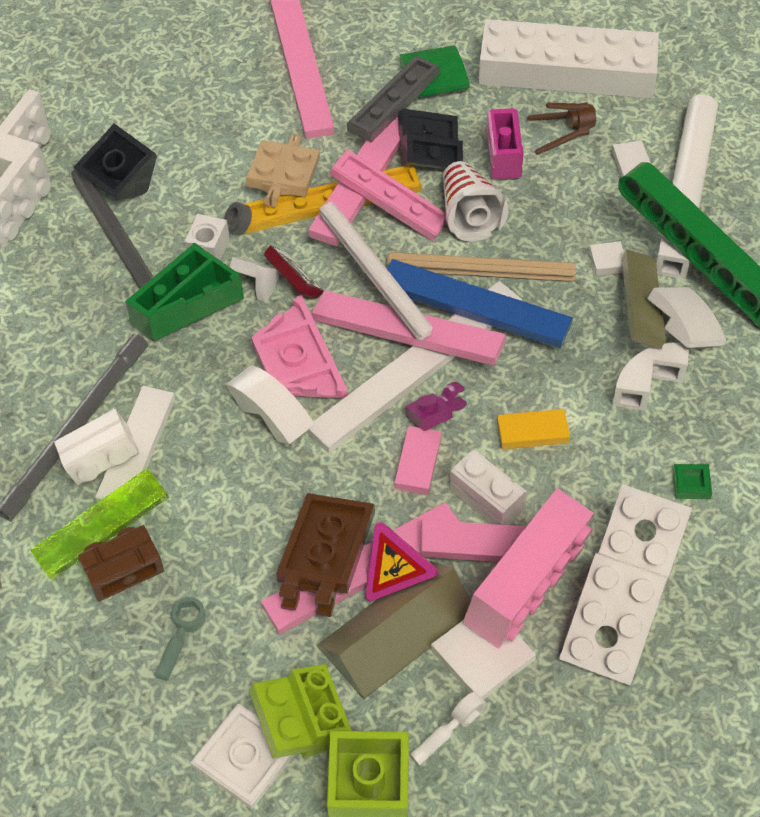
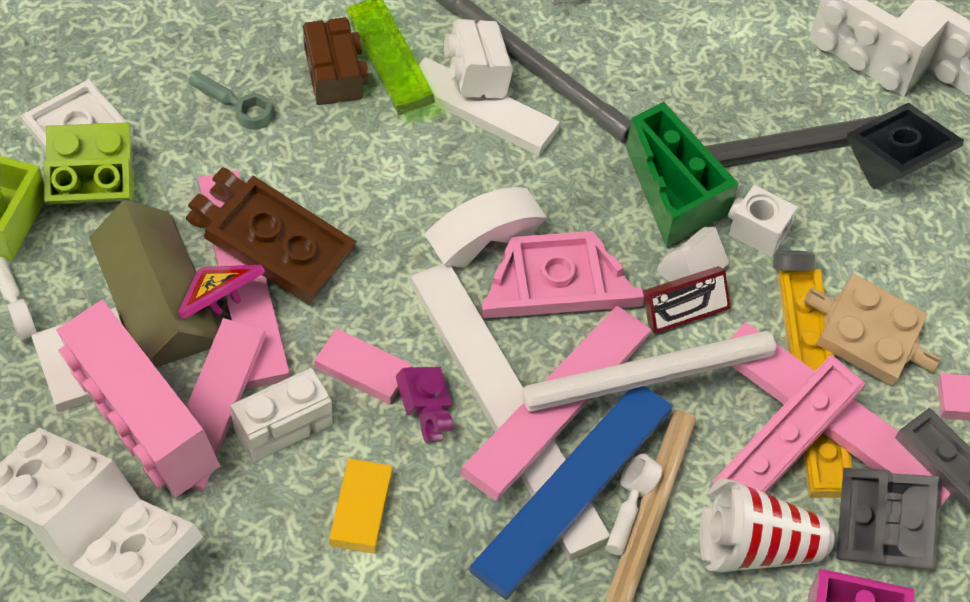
camera: 100 degrees right, 0 degrees up
(477, 273) = (639, 479): none -> white piece

